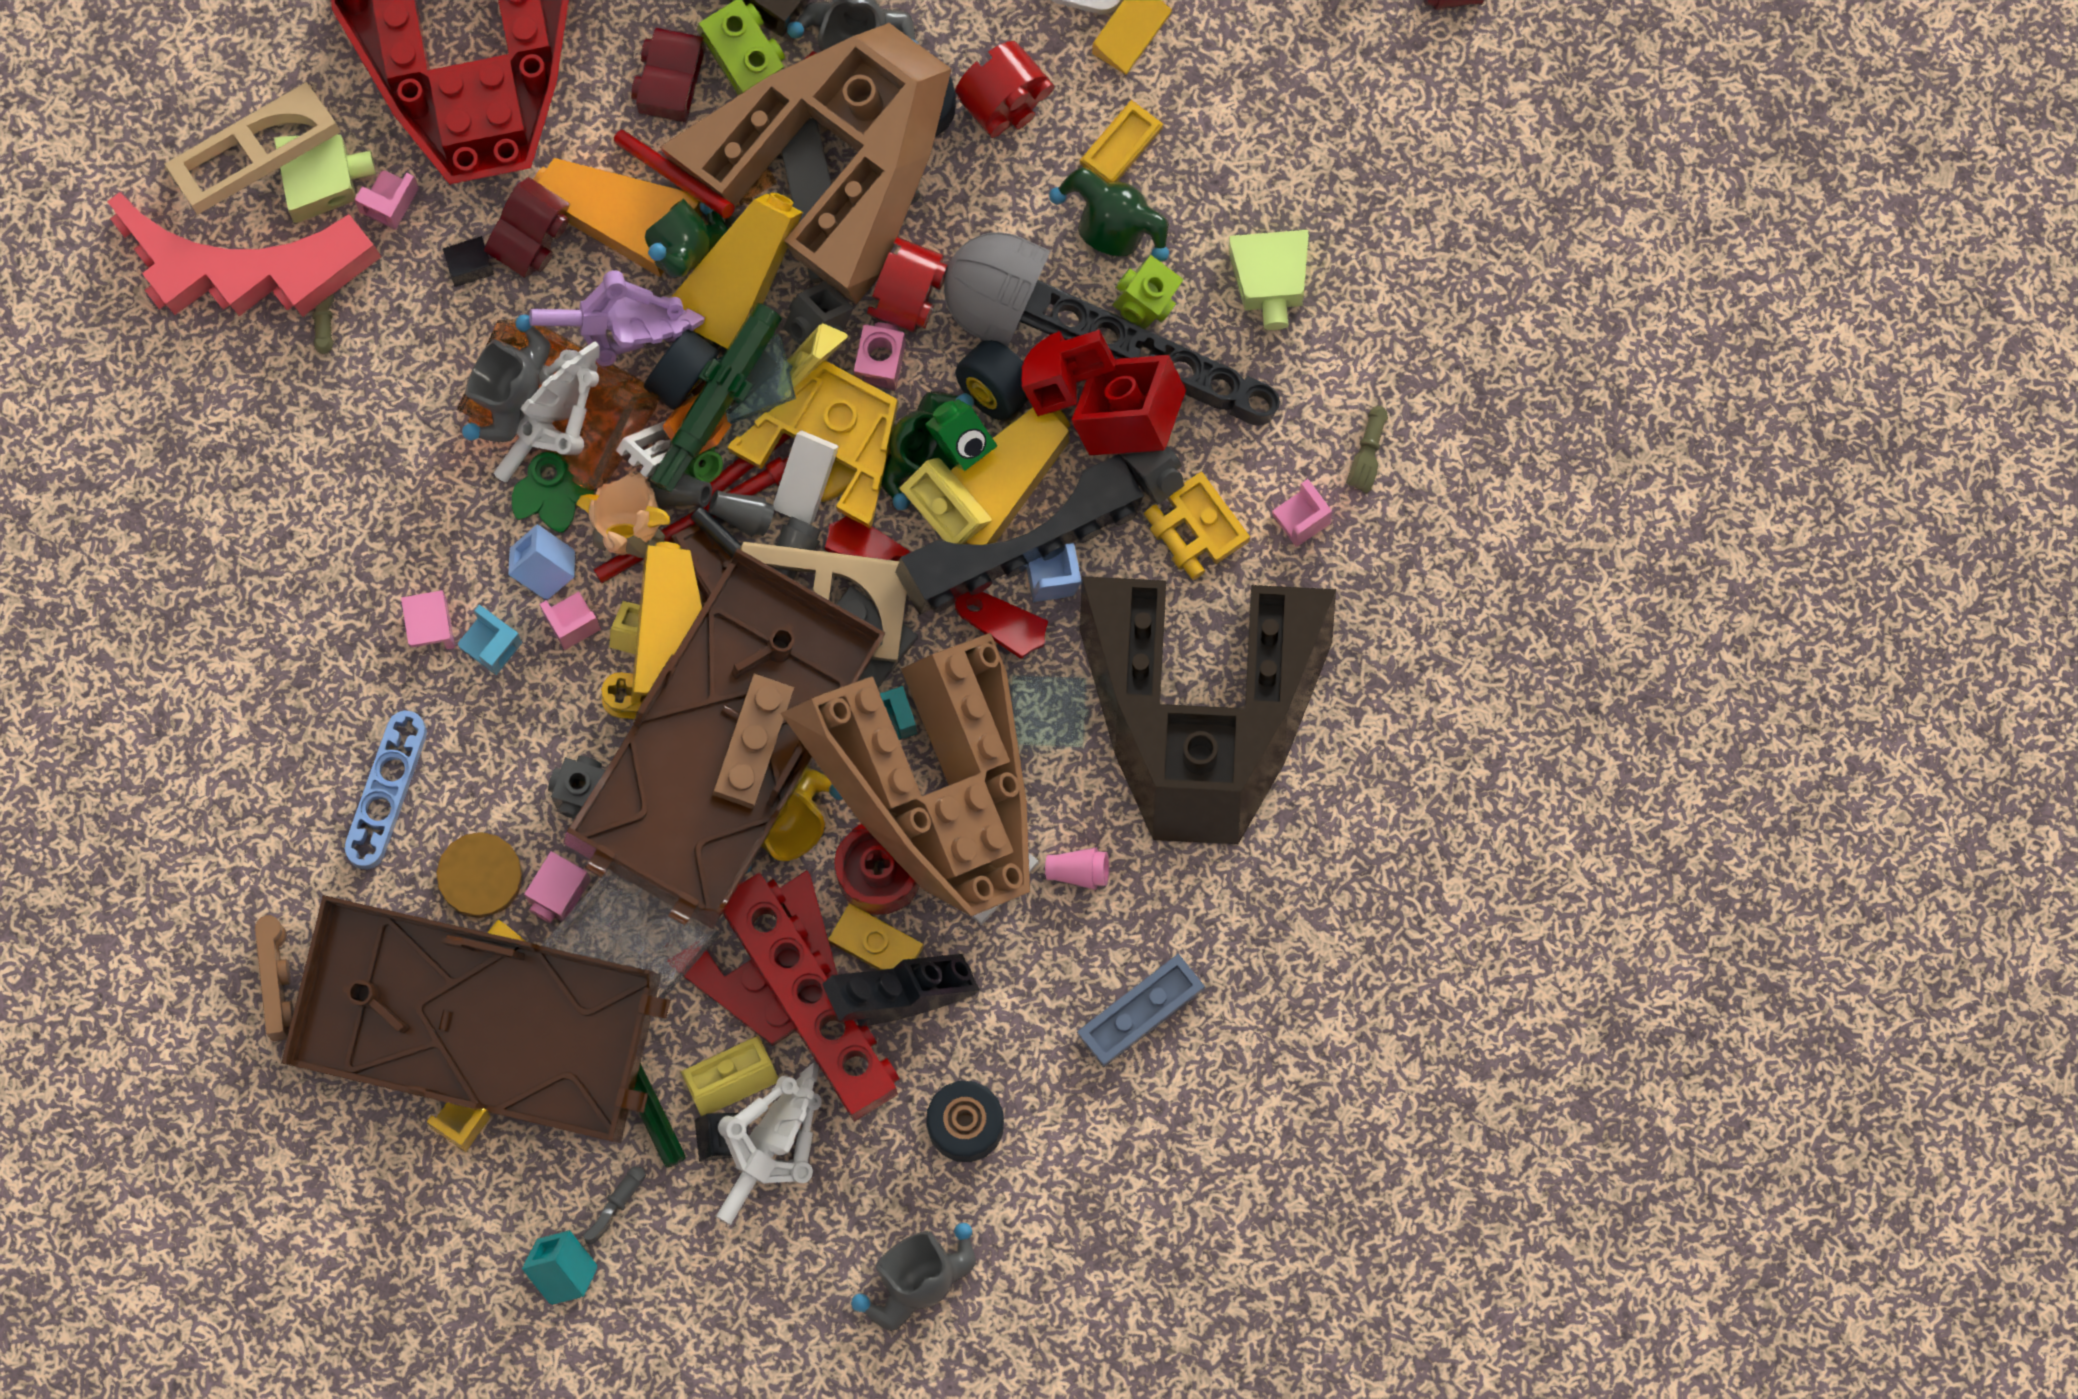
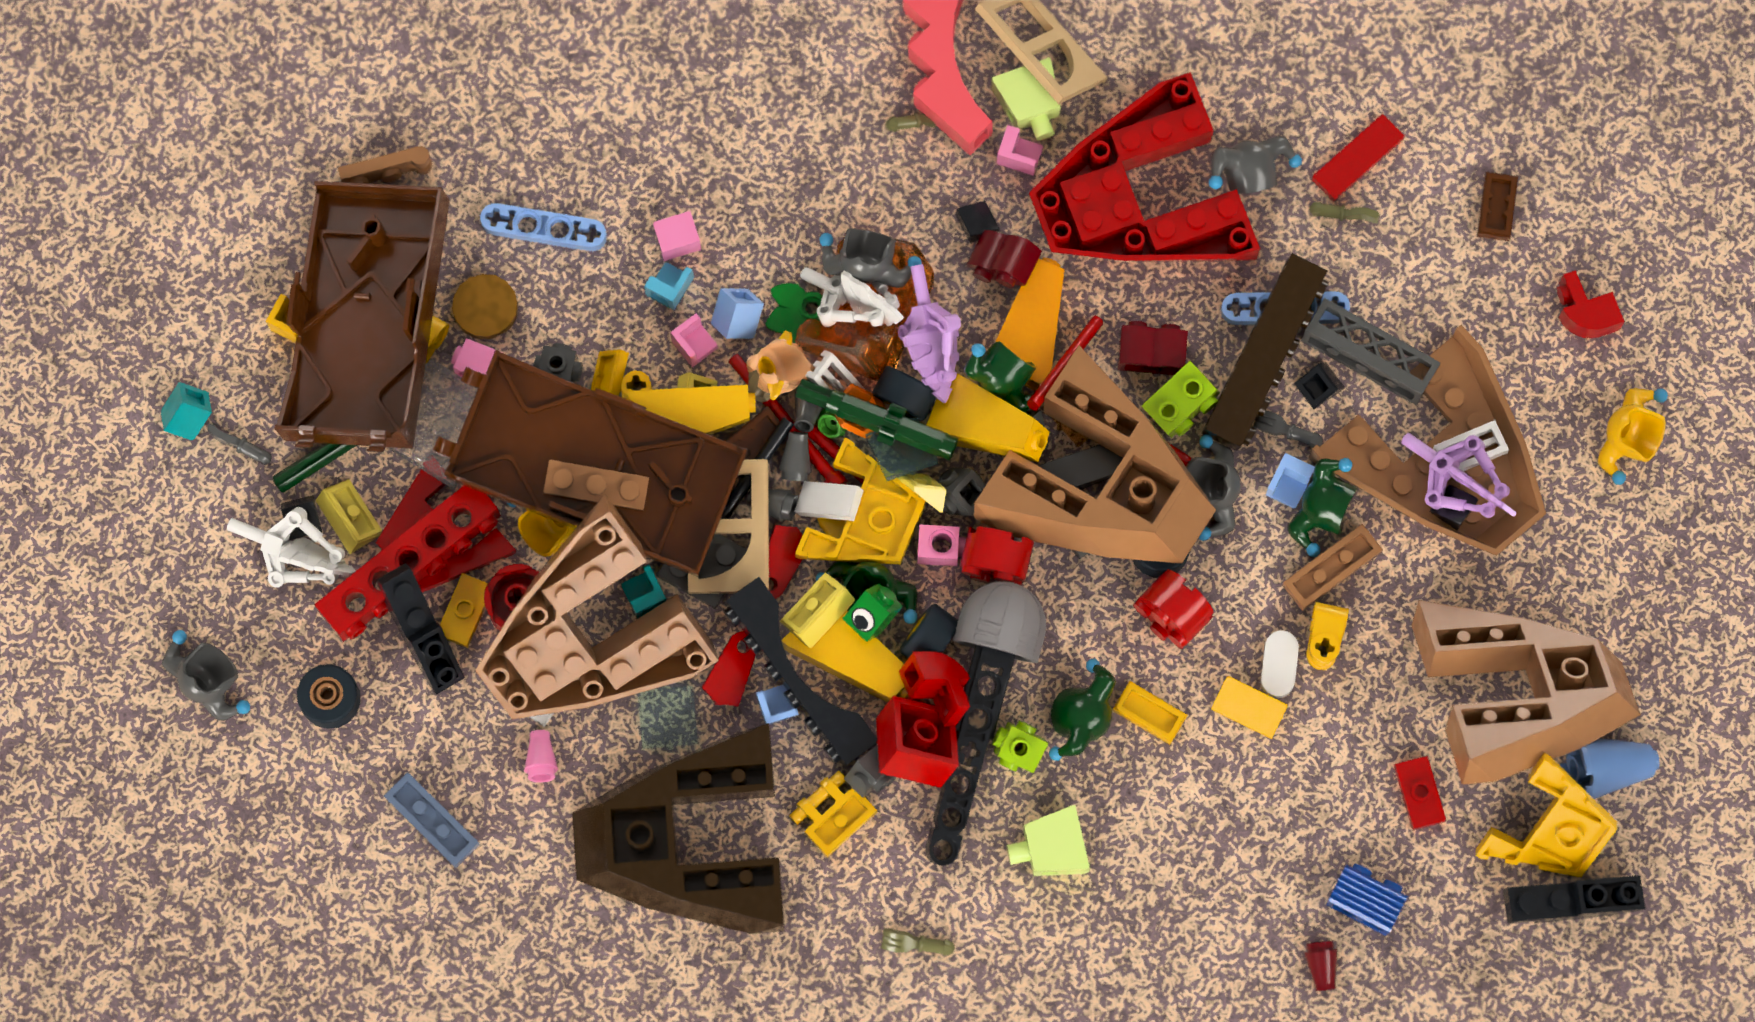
camera: 80 degrees right, 0 degrees up
(596, 727) = (610, 371): none -> yellow plate
(1303, 514) = (852, 896): bright pink panel -> none

